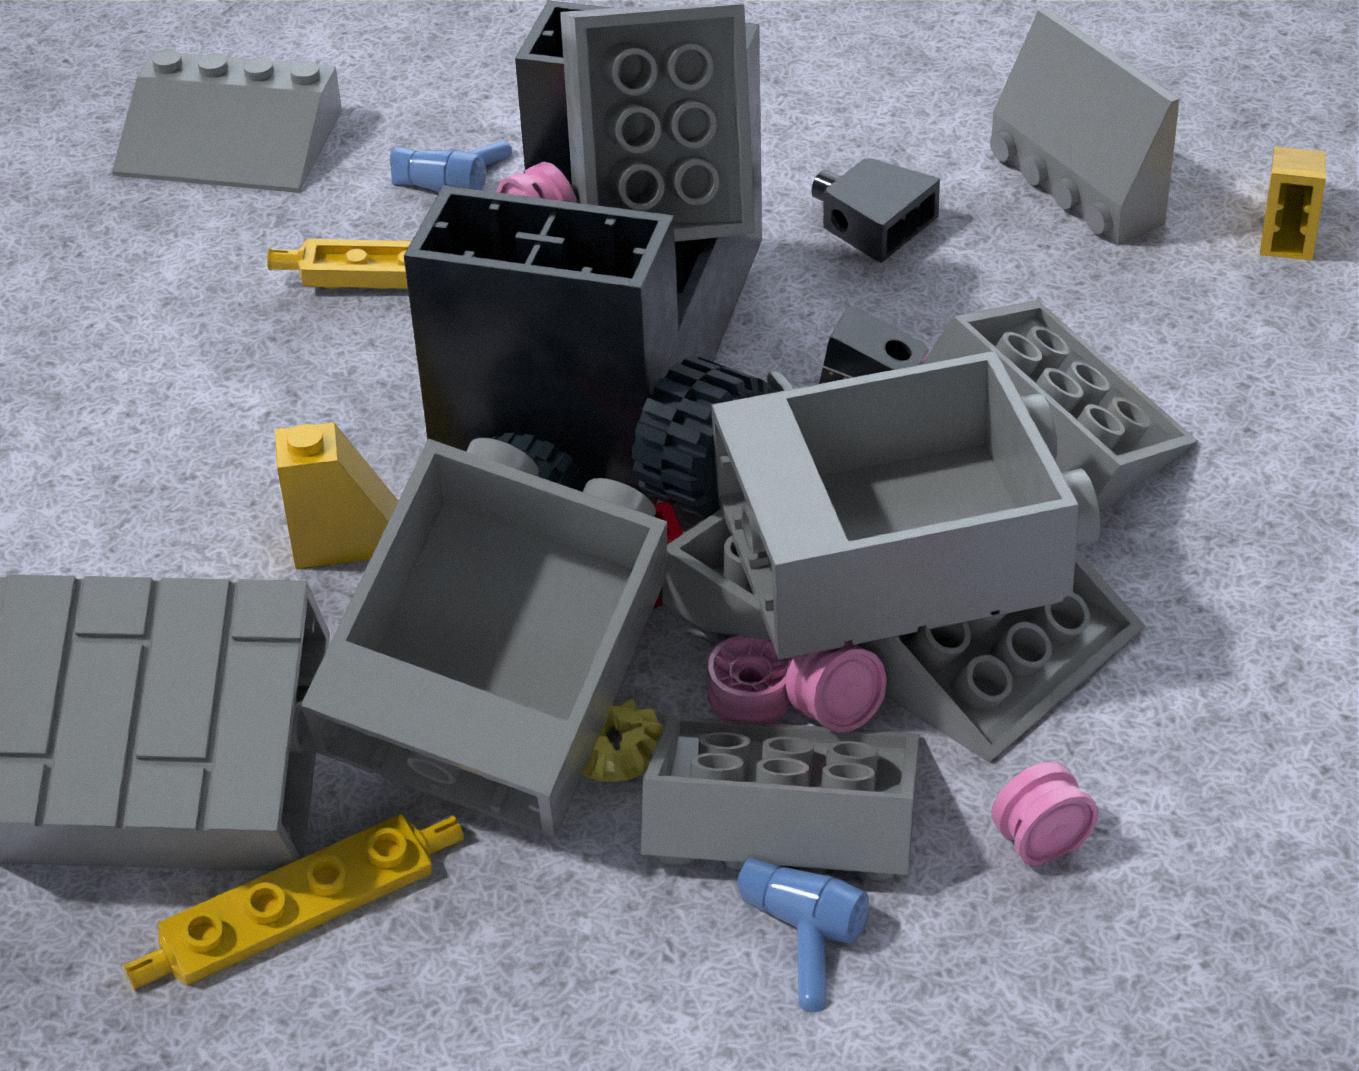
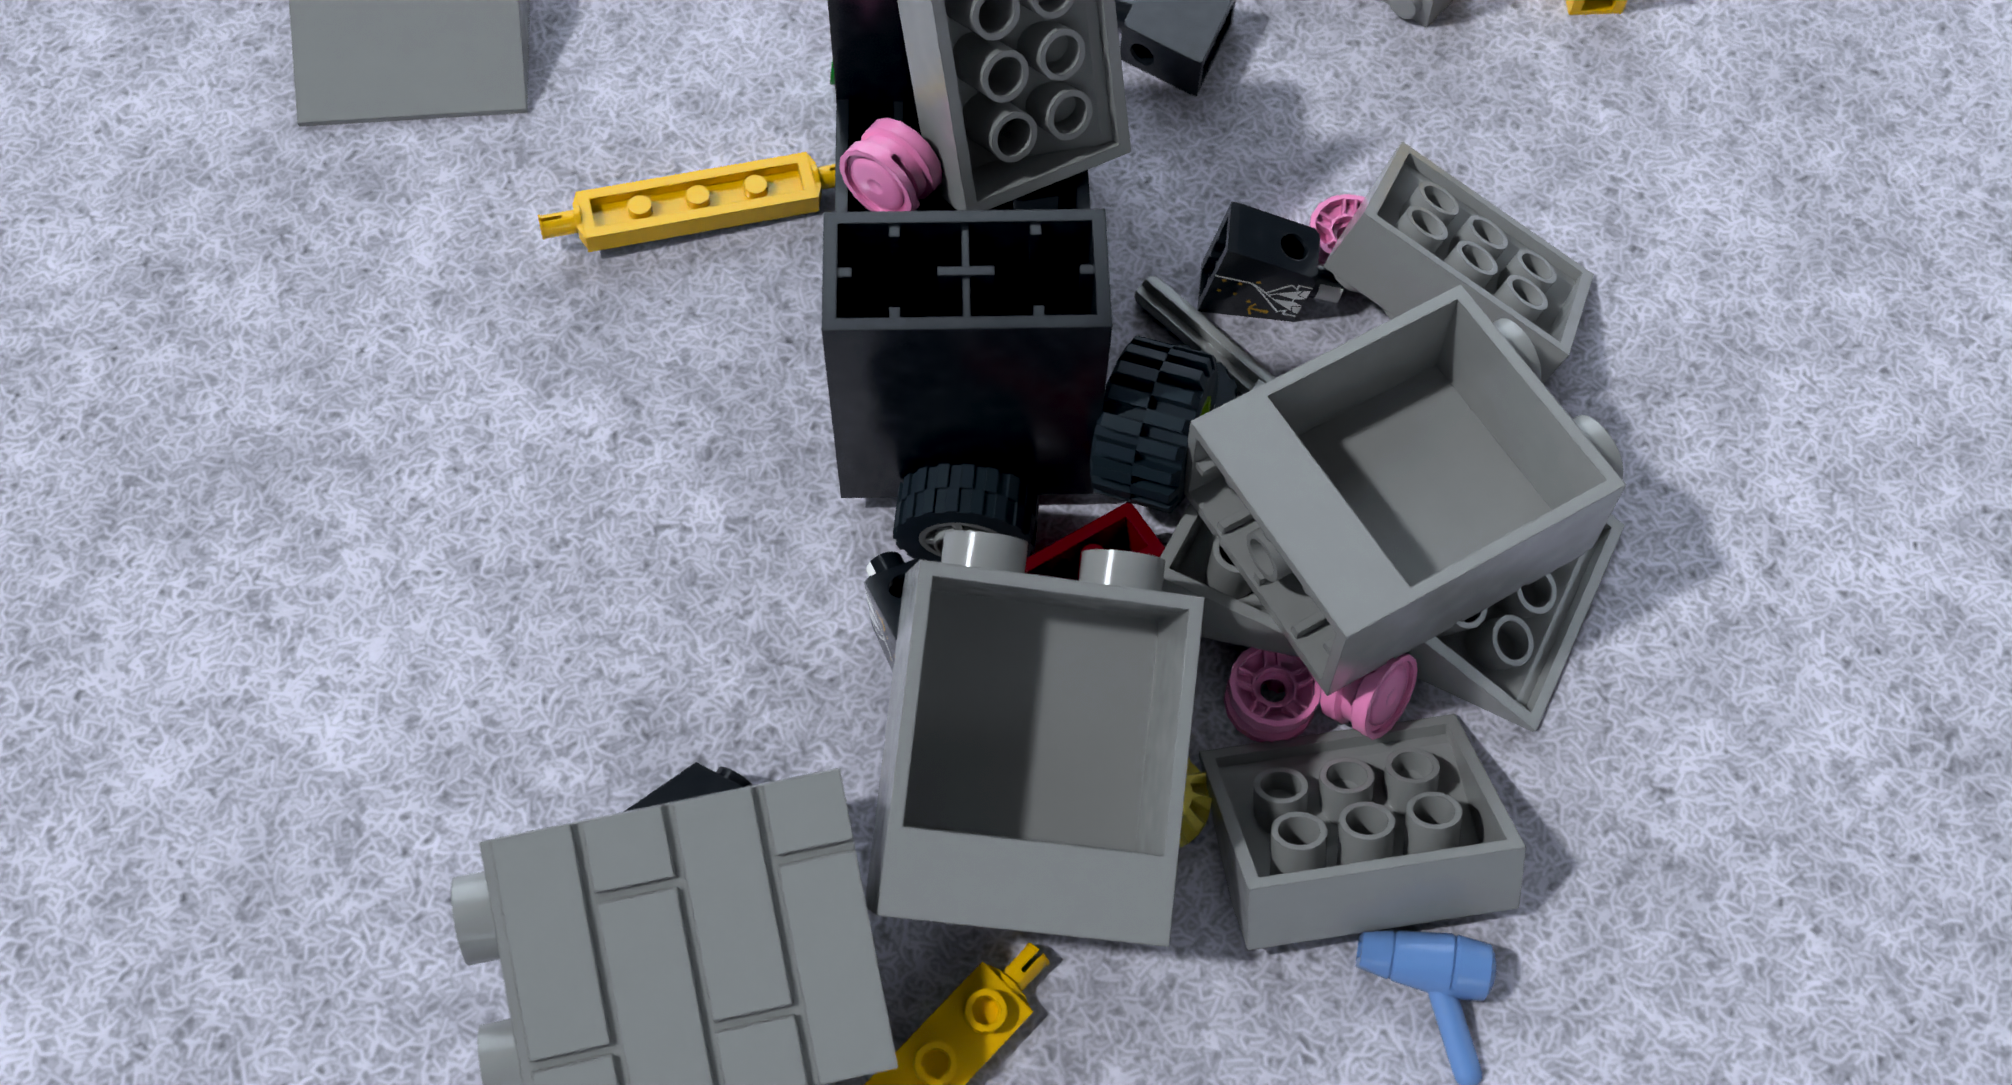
camera: 20 degrees left, 20 degrees up
(329, 496) = (761, 568): yellow slope -> none
(445, 167) = (689, 59): medium blue piece -> none
(1044, 813) = (1626, 801): bright pink wheel -> none

